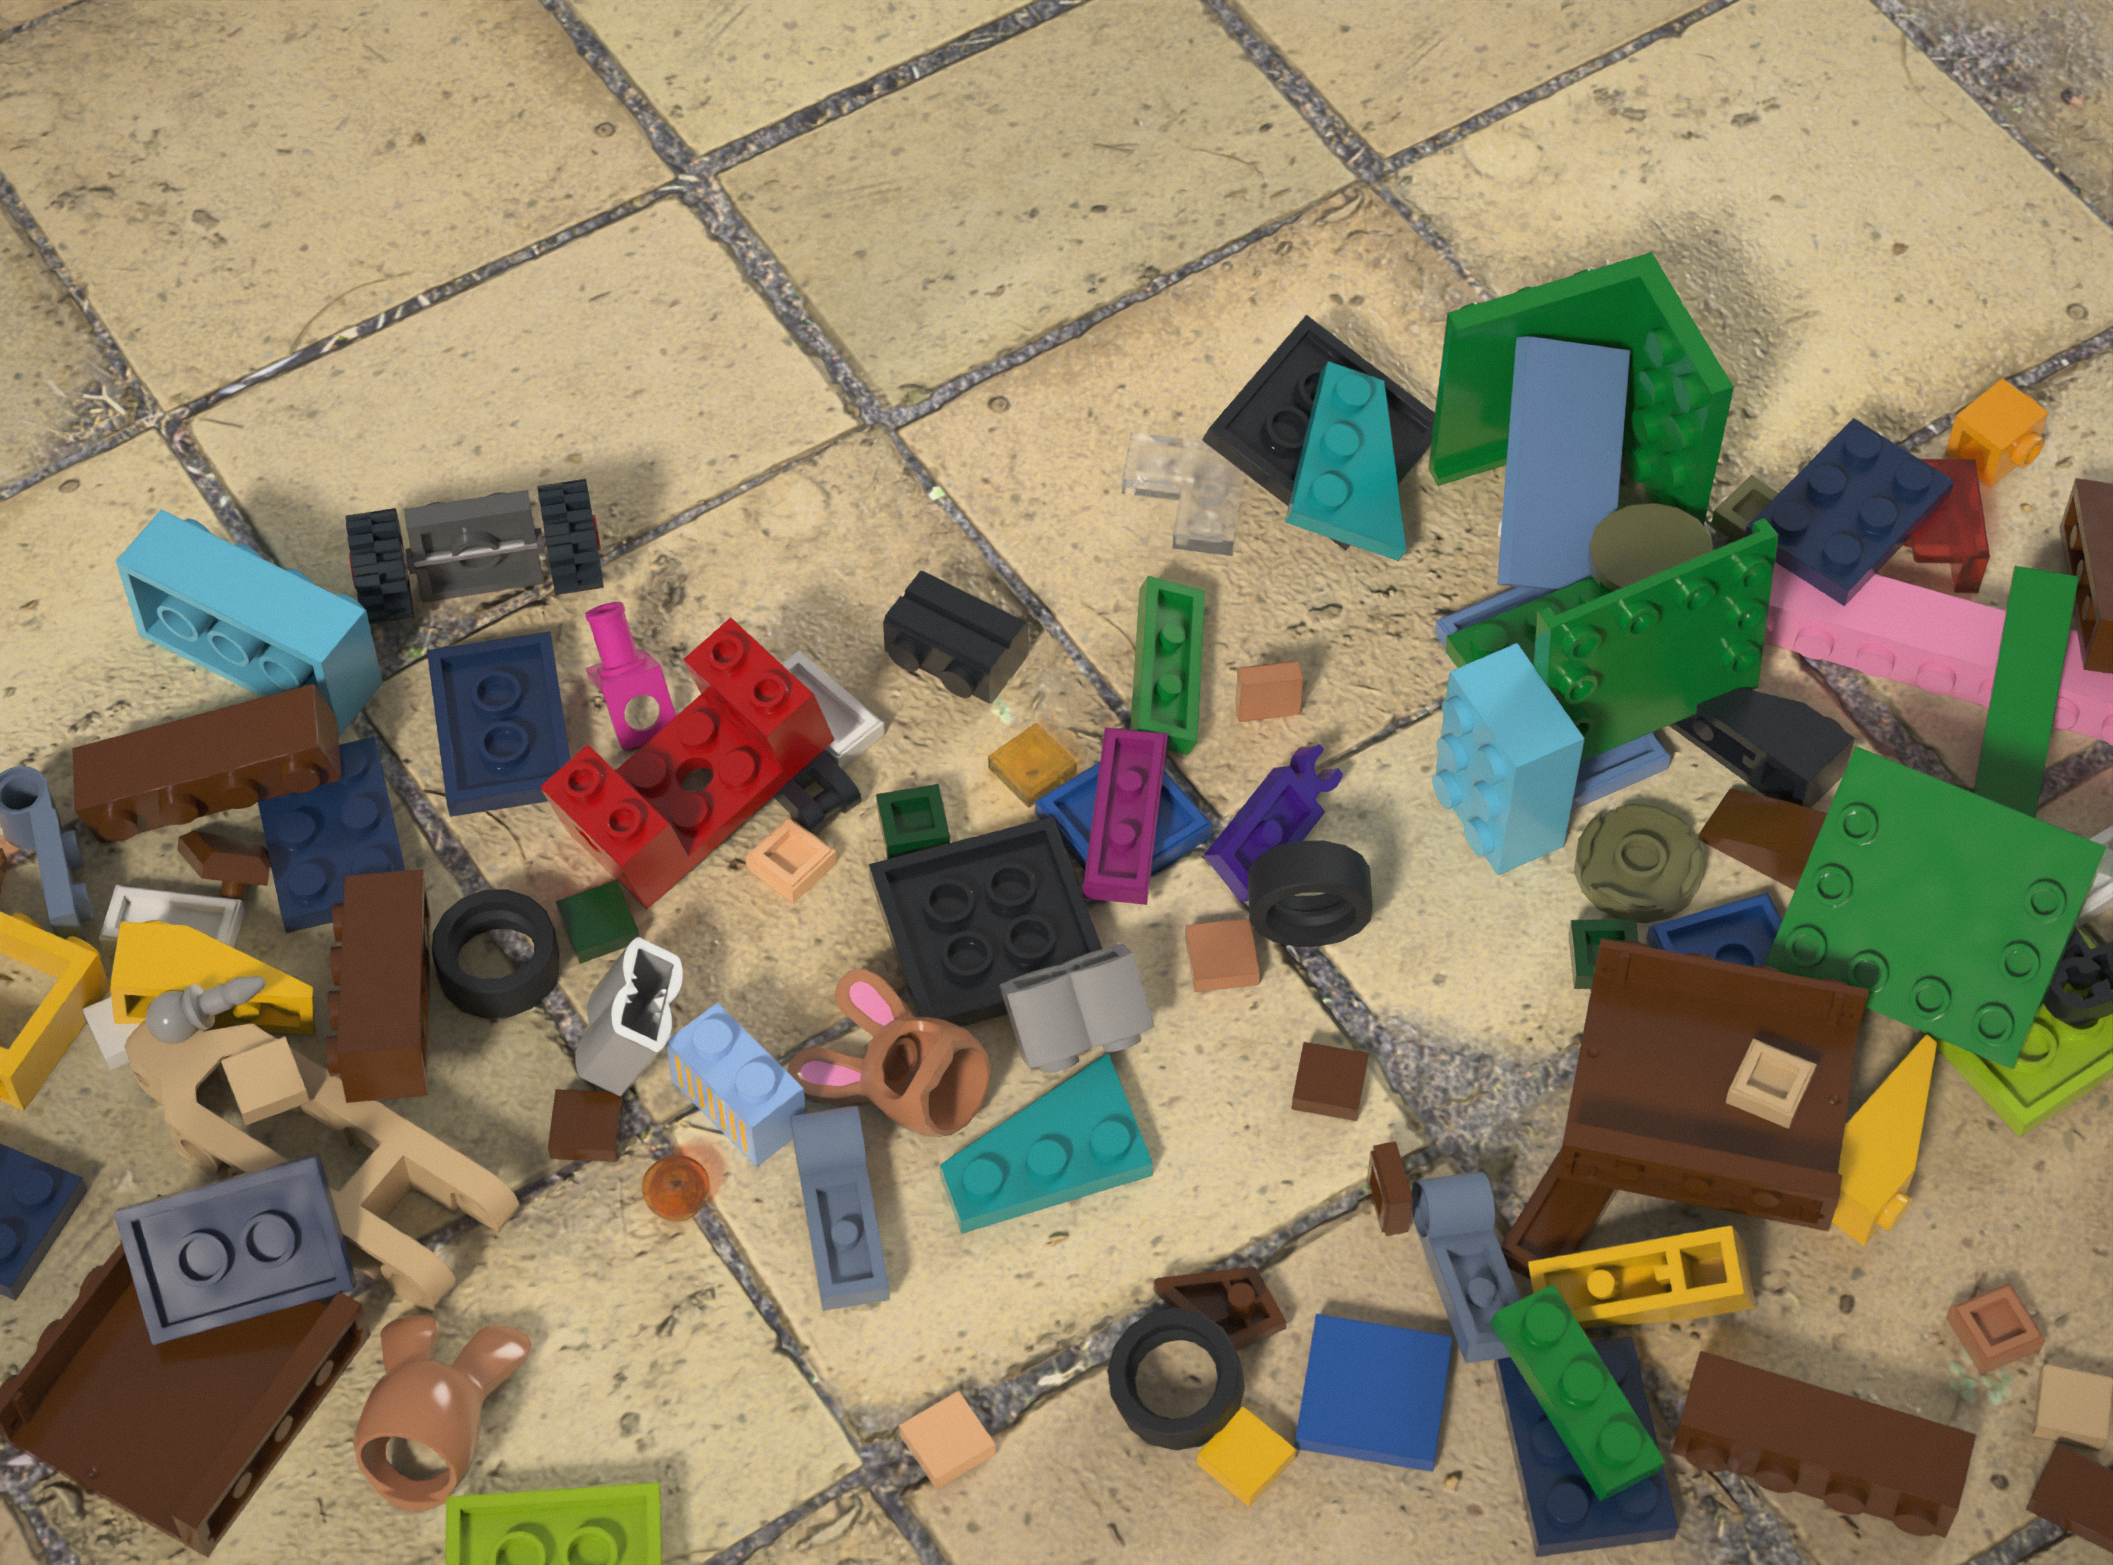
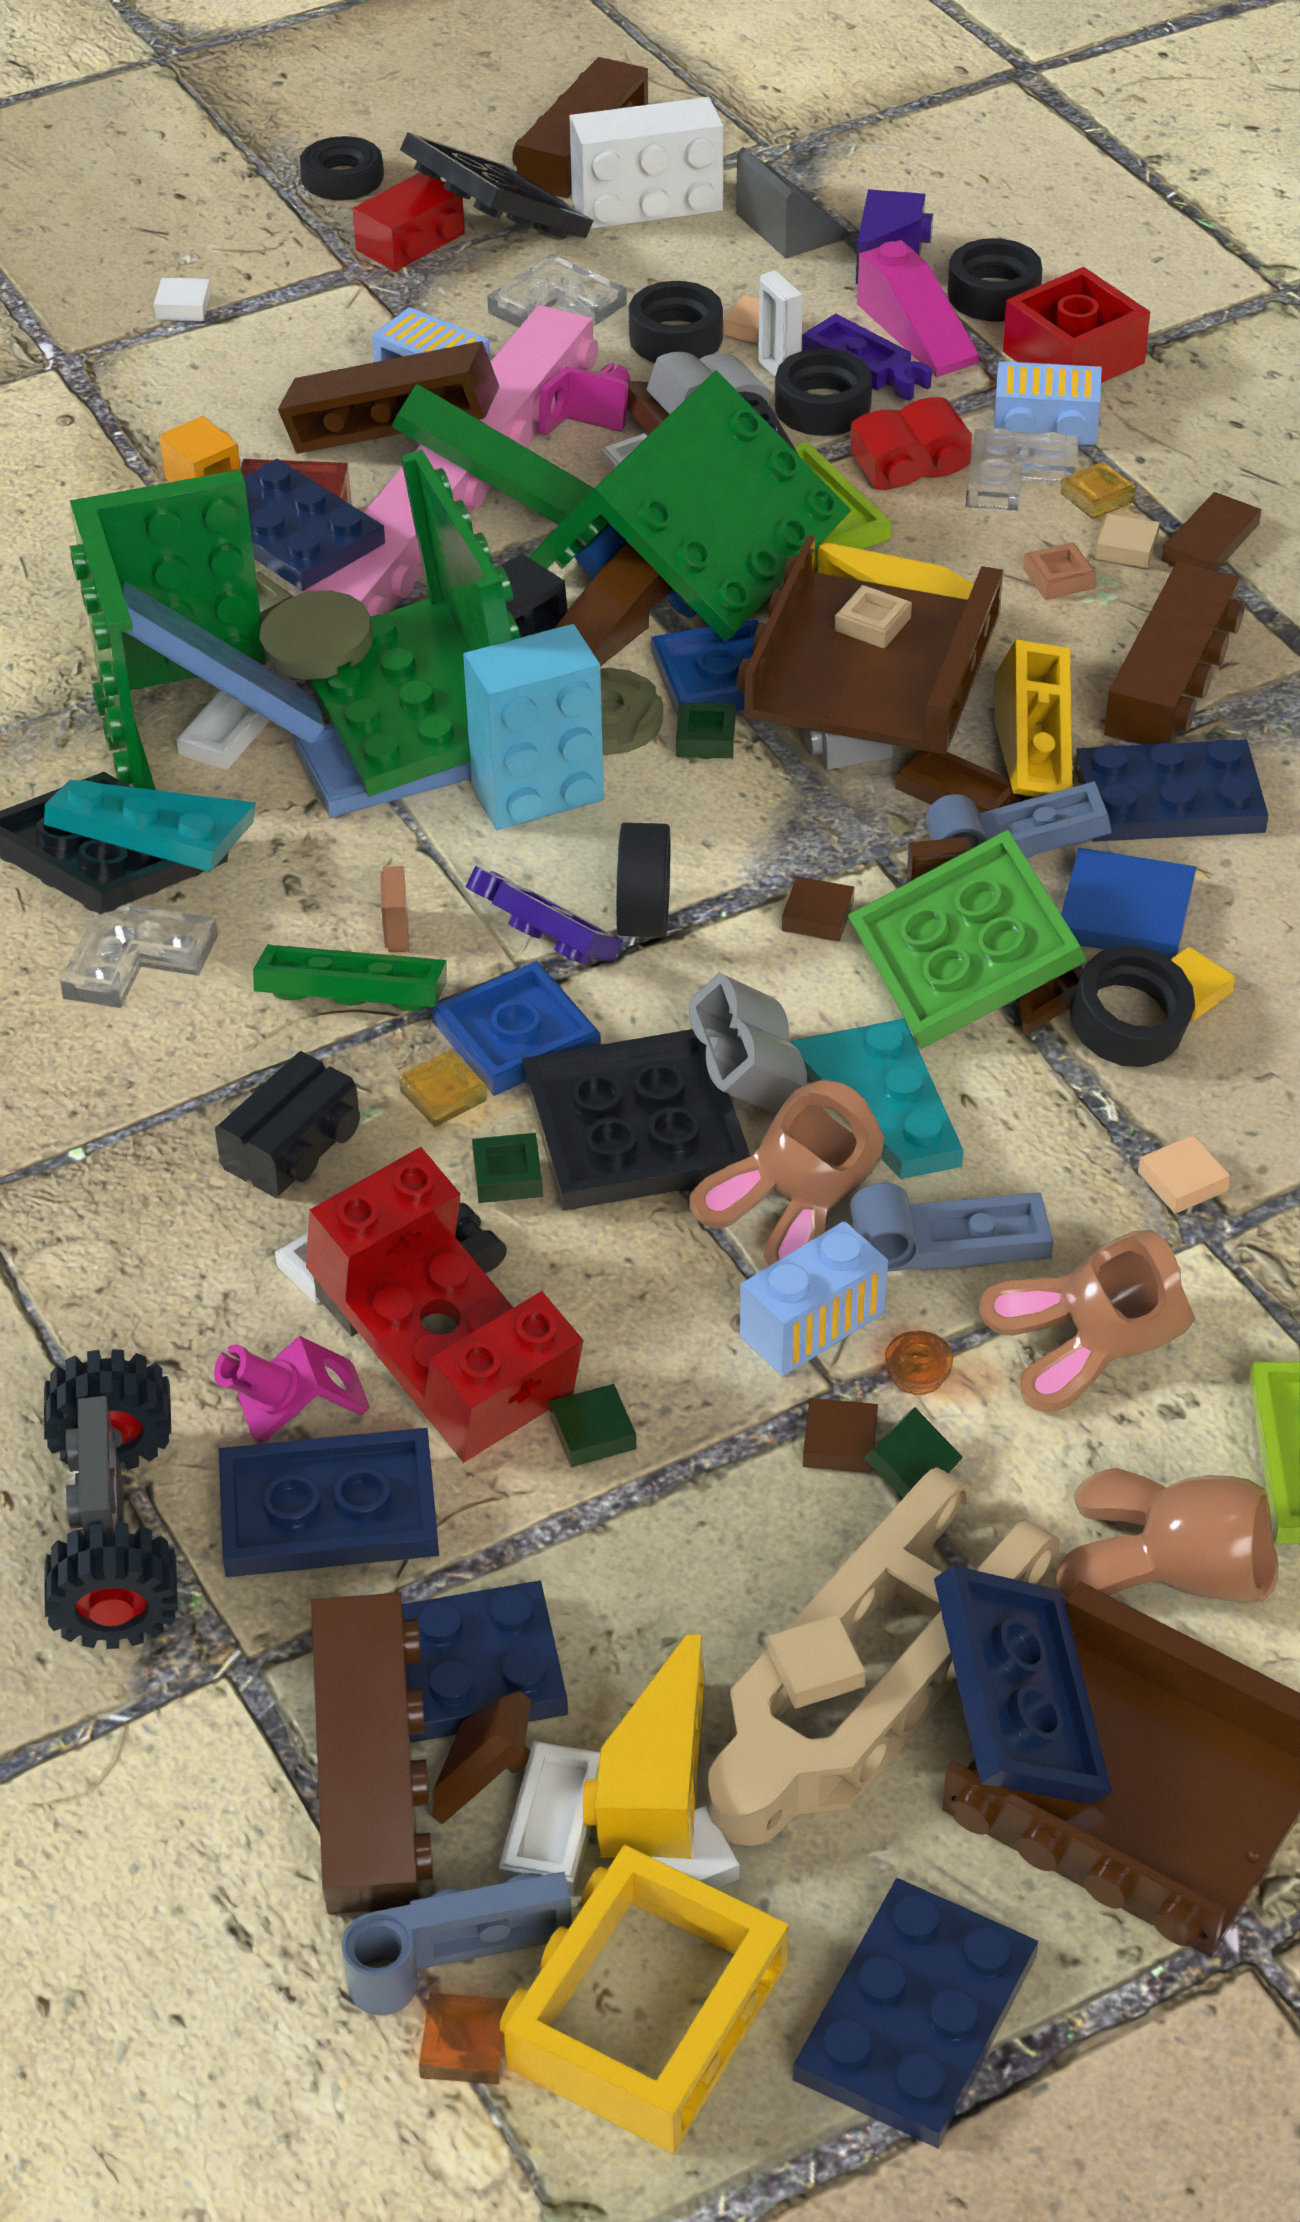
camera: 85 degrees left, 10 degrees down
(177, 1015) = (723, 1751): light grey bar -> none
(248, 616) = (164, 1712): medium azure brick -> none
(382, 987) = (690, 1566): reddish brown brick -> none
(487, 912) = (632, 1544): black tyre -> none
(548, 1181) = (910, 1452): none -> dark green tile
(629, 1016) = (742, 1367): light grey brick -> none
(724, 1349) = (1120, 1300): none -> nougat piece
(791, 859) = (532, 1267): light nougat tile -> none
(1125, 816) = (526, 1008): magenta tile -> none
(1222, 955) = (677, 967): nougat tile -> none
(1257, 1207) = (966, 938): none -> bright green plate
(1577, 1392) = (1147, 759): green plate -> none

